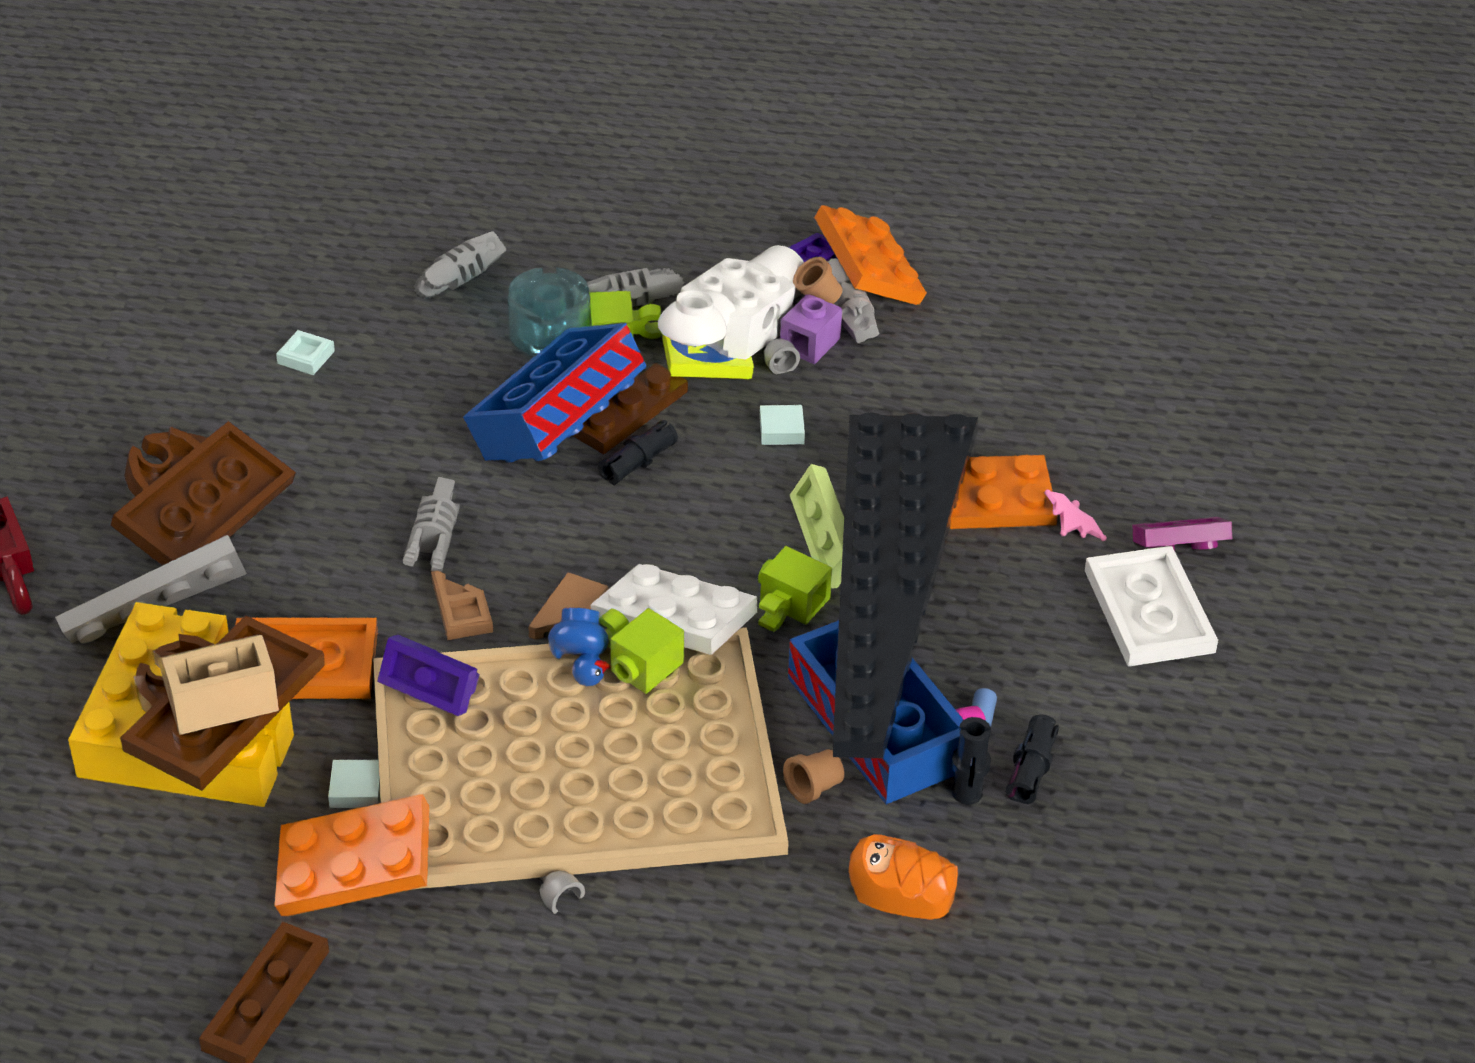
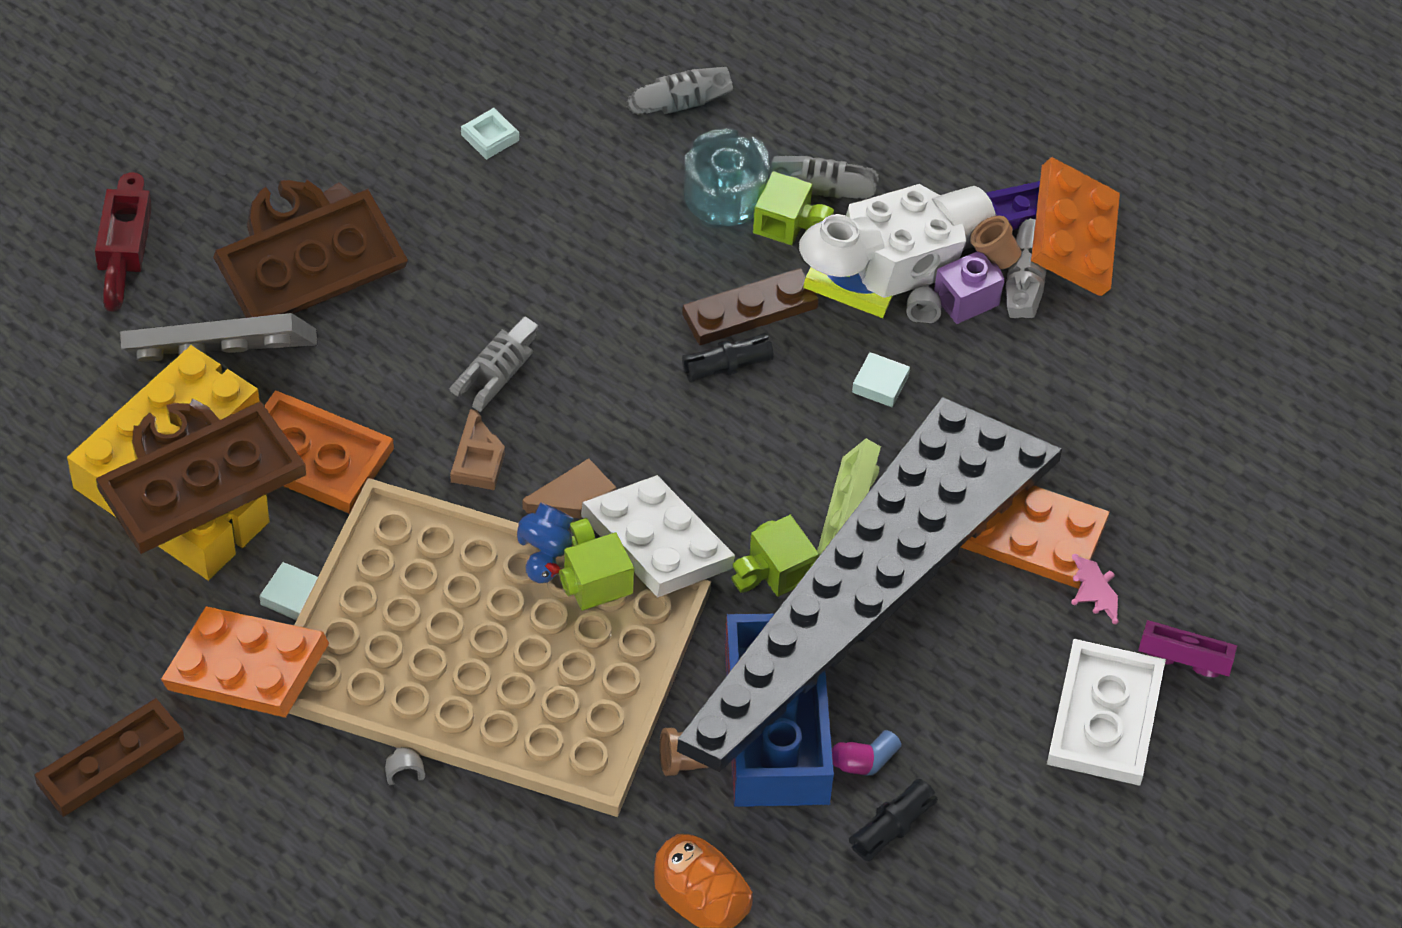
camera: 25 degrees right, 10 degrees up
(219, 683) = (191, 461): tan slope -> none
(428, 675) = (396, 518): dark purple plate -> none
(555, 393) = (677, 269): blue brick -> none
(972, 744) = (821, 801): black pin -> none

